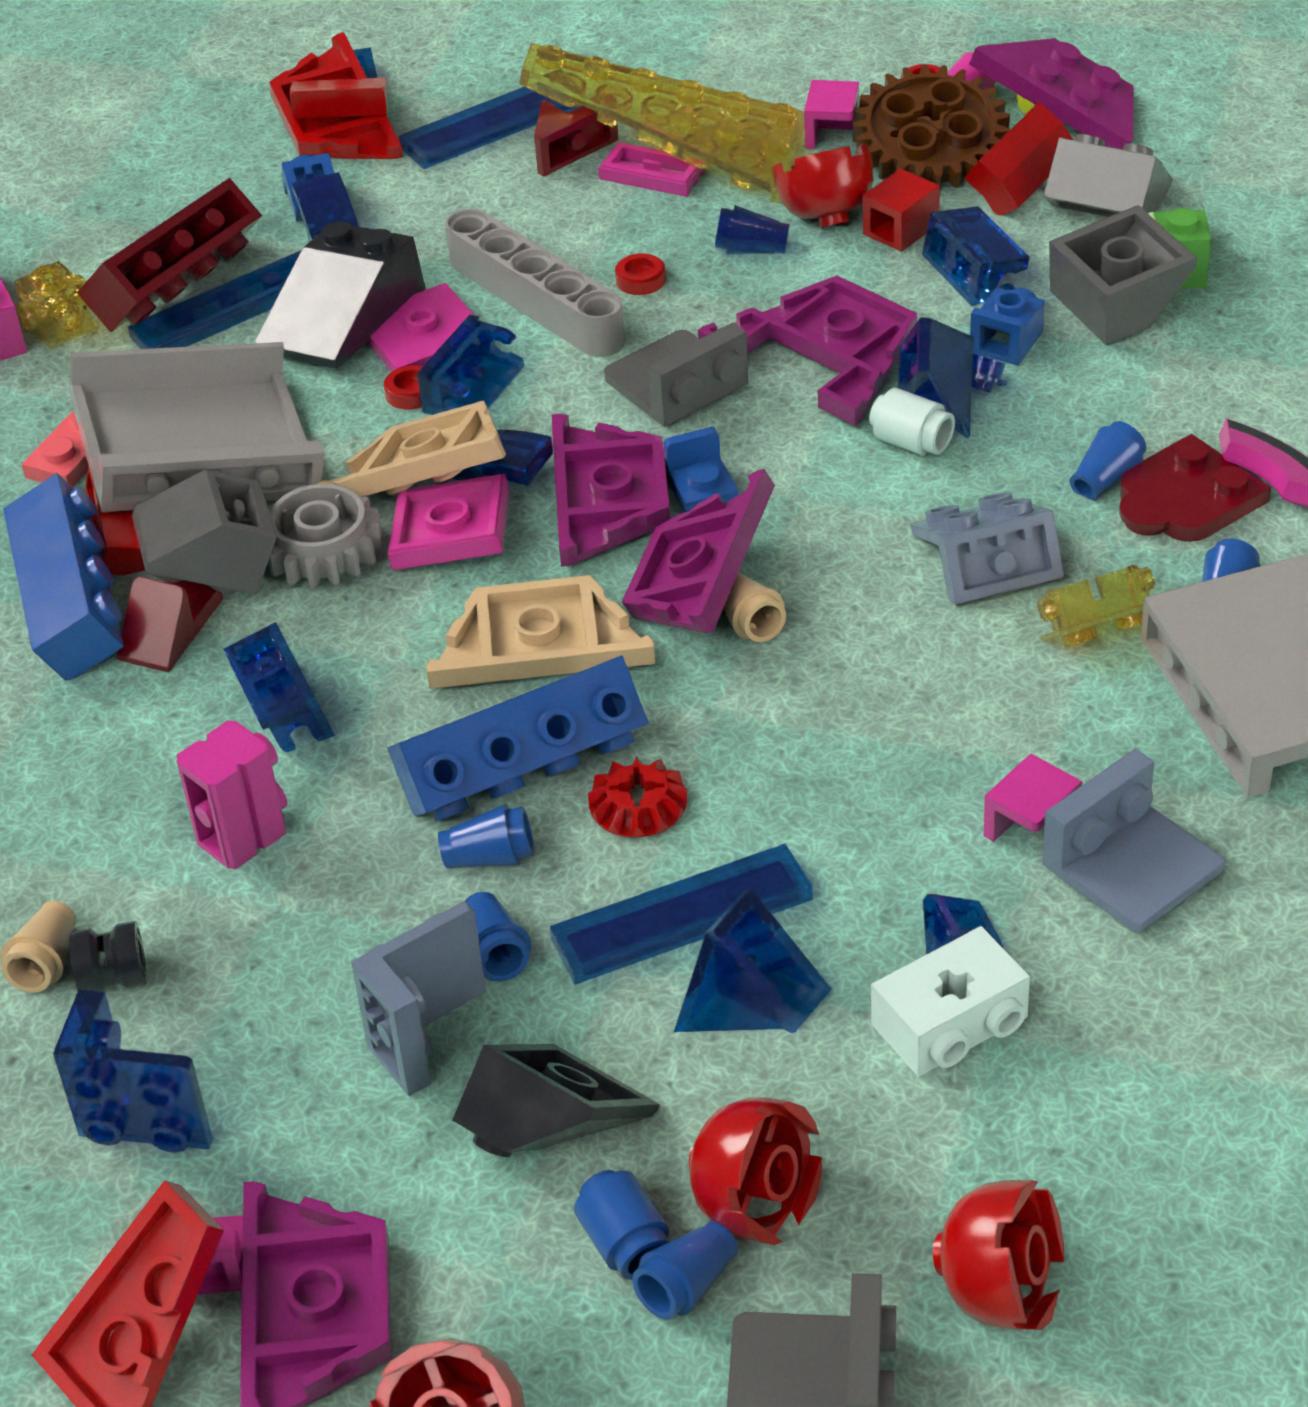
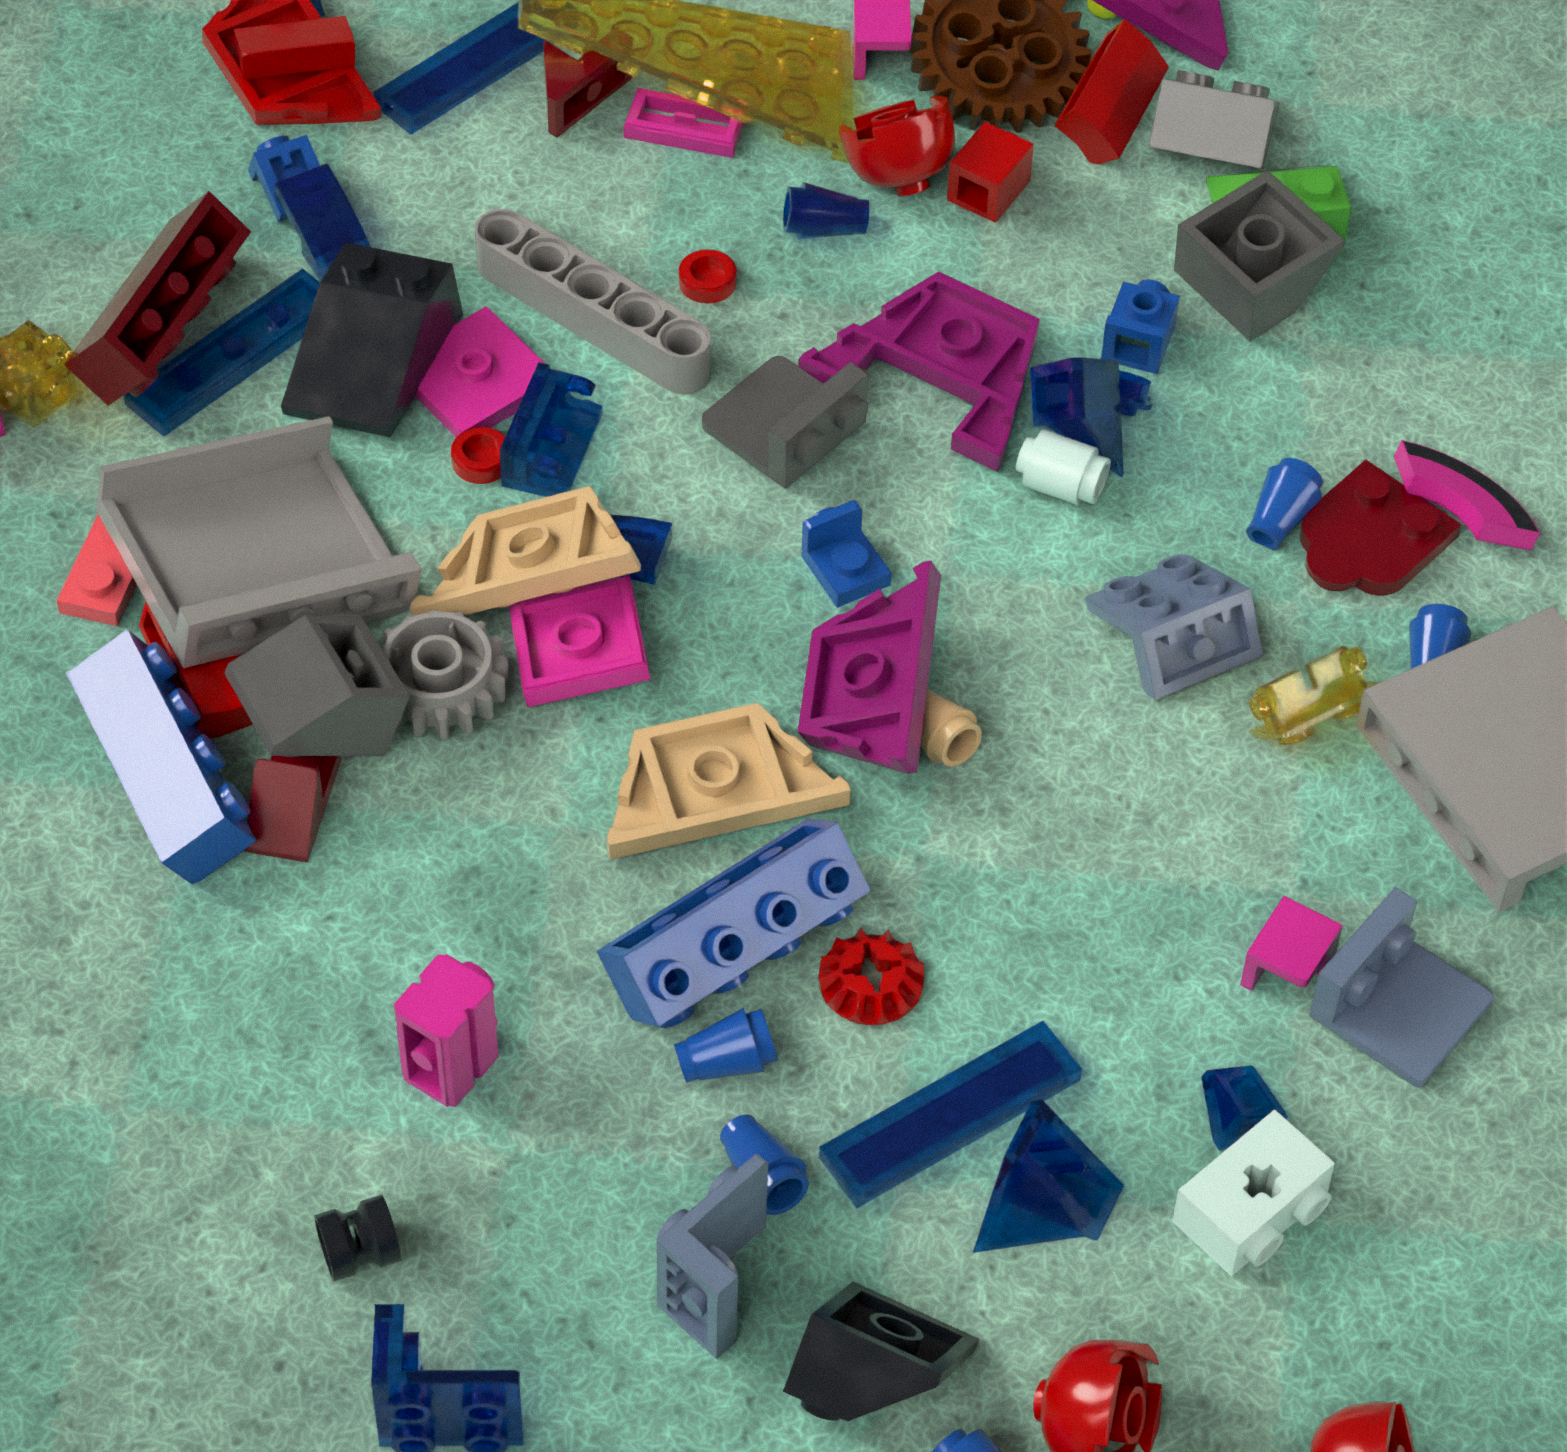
camera: 15 degrees left, 10 degrees up
(39, 948) = (276, 1232): tan cone -> none
(276, 686) = (448, 879): clear blue hinge -> none
(606, 487) = (742, 578): magenta wing -> none
(972, 252) = (1083, 229): clear blue hinge -> none

